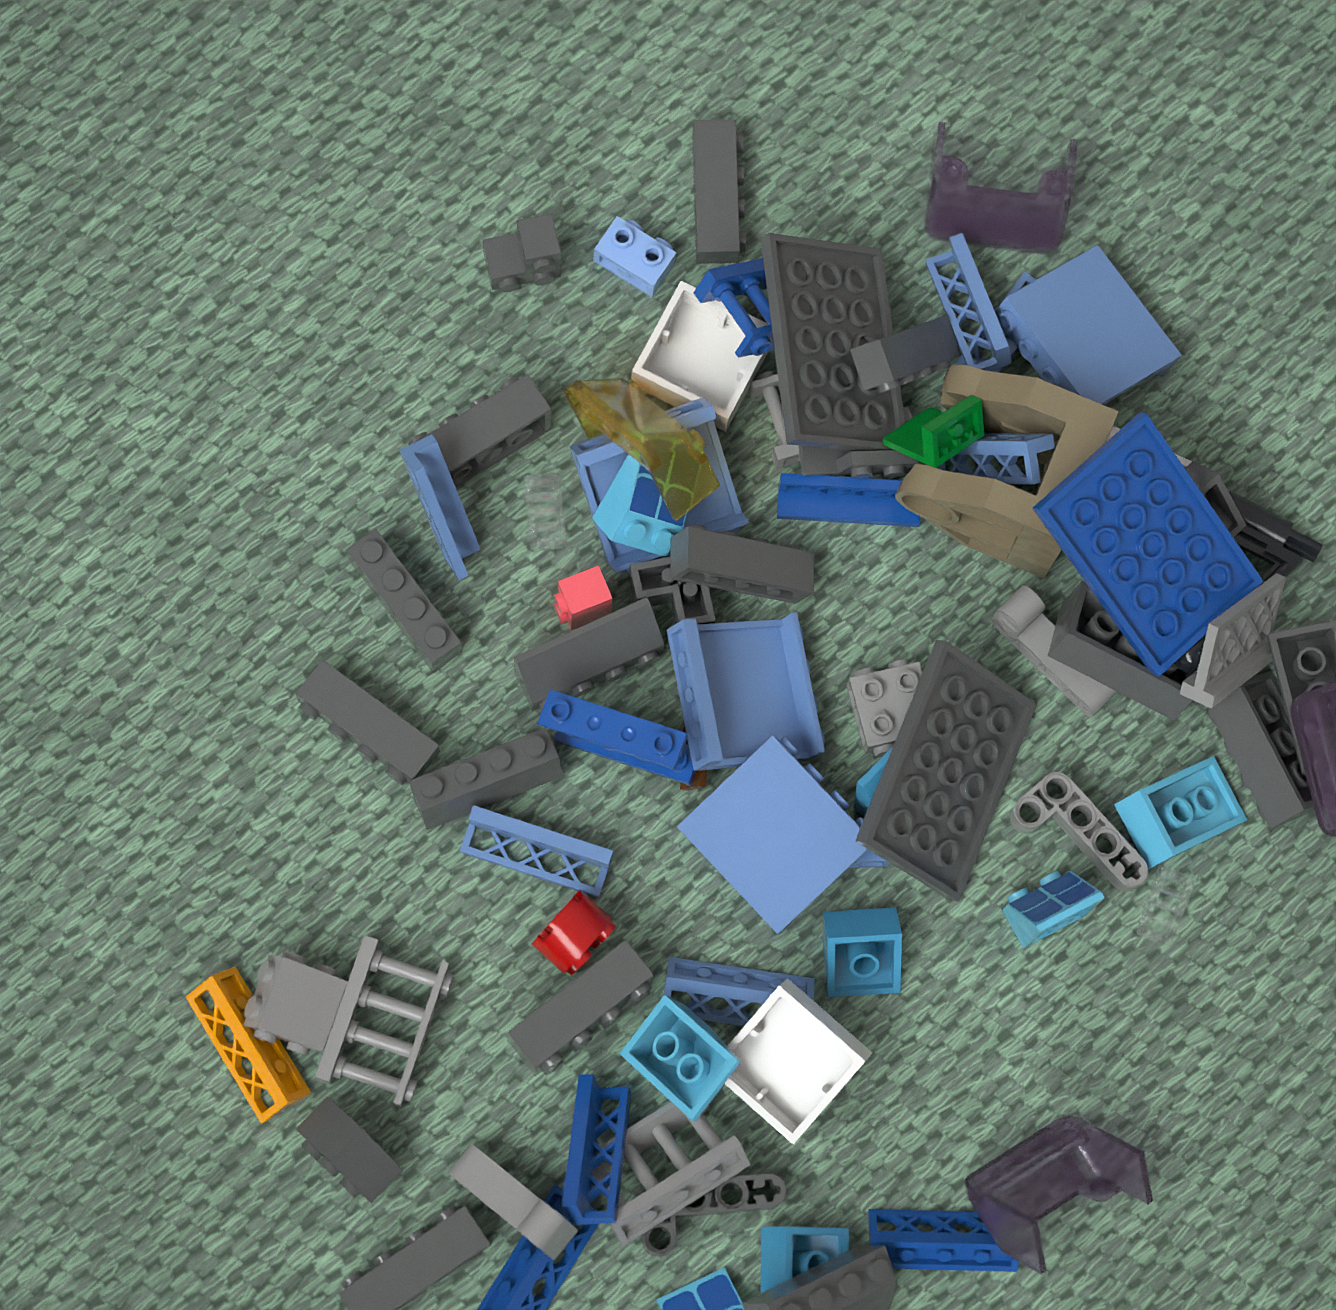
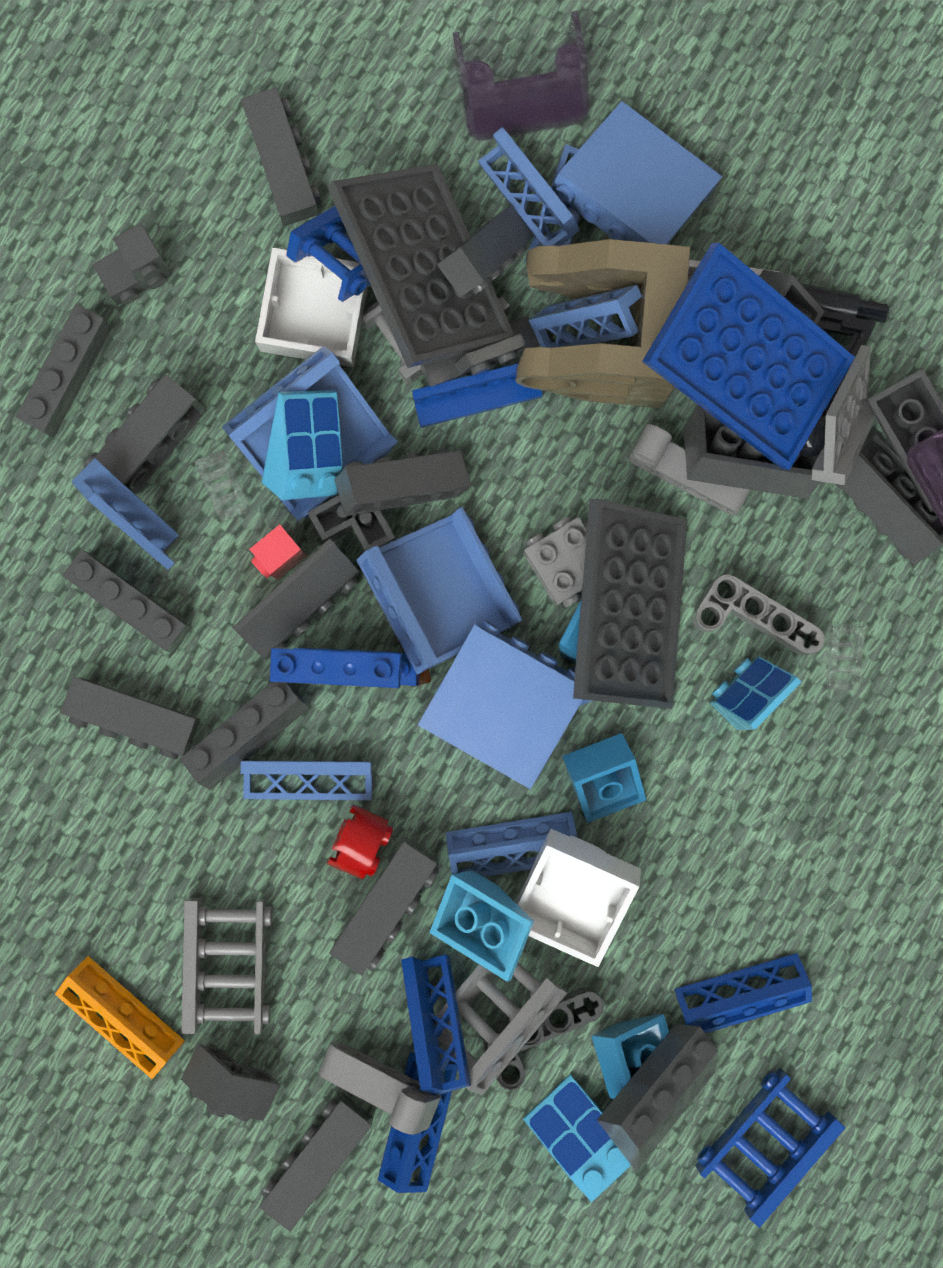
camera: 15 degrees left, 10 degrees up
(294, 1003) = (144, 977): light grey brick -> none
(415, 340) = (64, 371): none -> dark grey brick
(635, 255) = (228, 236): light blue brick -> none
(649, 436) = (286, 399): clear yellow windscreen -> none
(939, 435) = (536, 316): green bracket -> none
(1046, 1173) = (810, 918): clear purple windscreen -> none
(1180, 812) = (835, 575): medium azure slope -> none

